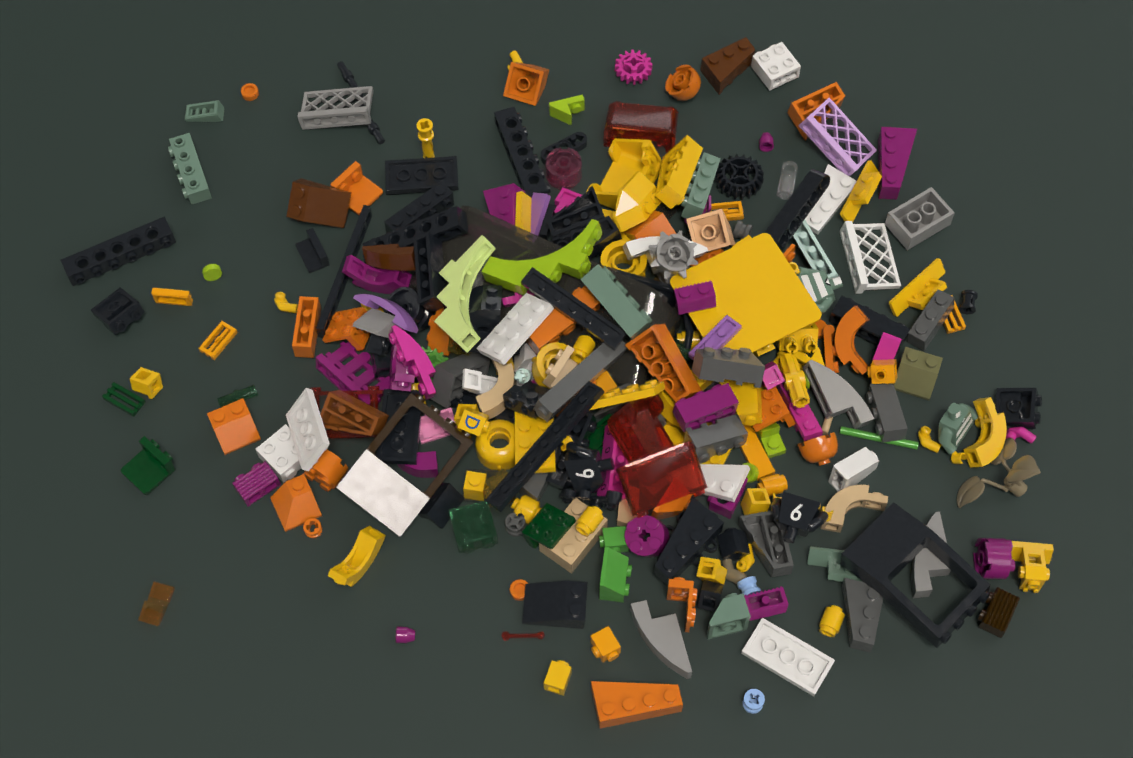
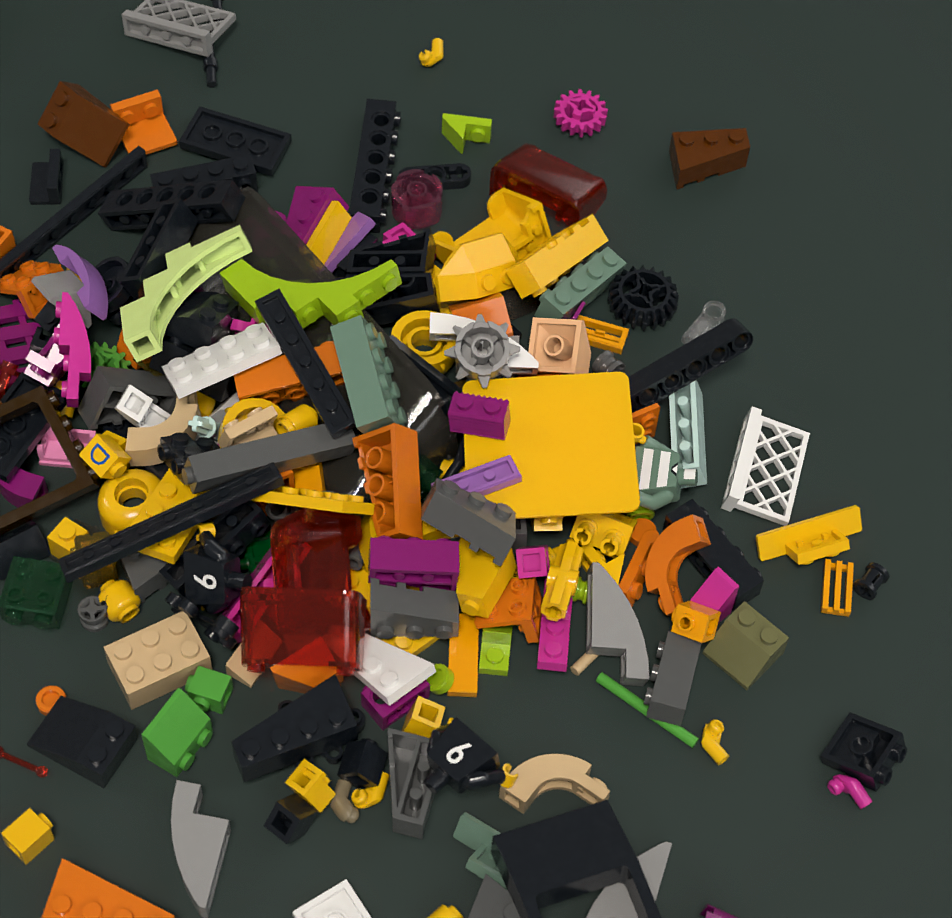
camera: 20 degrees right, 5 degrees down
(375, 279) = (95, 234): magenta arch -> none
(390, 257) = (124, 214): reddish brown slope -> none
(426, 135) = (258, 90): yellow pin -> none
(525, 82) = (431, 80): orange slope -> none
(548, 527) = (126, 631): dark green bracket -> none
(589, 520) = (179, 645): yellow brick -> none
(605, 645) = (115, 821): light orange brick -> none
(638, 528) = (248, 698): magenta brick -> none
(683, 83) = (633, 156): orange cylinder -> none
(683, 590) = (256, 795): orange bracket -> none
(730, 617) = (295, 856): sand green slope -> none
(748, 586) = (351, 831): light blue wheel -> none
(766, 142) = (704, 270): magenta hose -> none
(766, 603) = (357, 861): magenta brick -> none
(773, 484) = (463, 707): light orange brick -> none
(775, 66) = (768, 179): white brick -> none
(803, 107) = (793, 251): orange wedge -> none
(819, 449) = (552, 687): orange cylinder -> none
(830, 145) = (781, 299): lavender fence -> none
(831, 200) = (750, 372): white wing -> none
(853, 469) = (584, 733): white slope -> none
(862, 191) = (796, 380): yellow bracket -> none
(893, 156) = (868, 353): magenta wedge -> none
(919, 218) = (859, 444): light grey brick -> none
(931, 320) = (802, 582): dark grey brick -> none
(954, 427) = (759, 737): sand green torso -> none
(991, 436) = (806, 771): yellow arch -> none
(1022, 469) = (800, 839): dark tan plant -> none

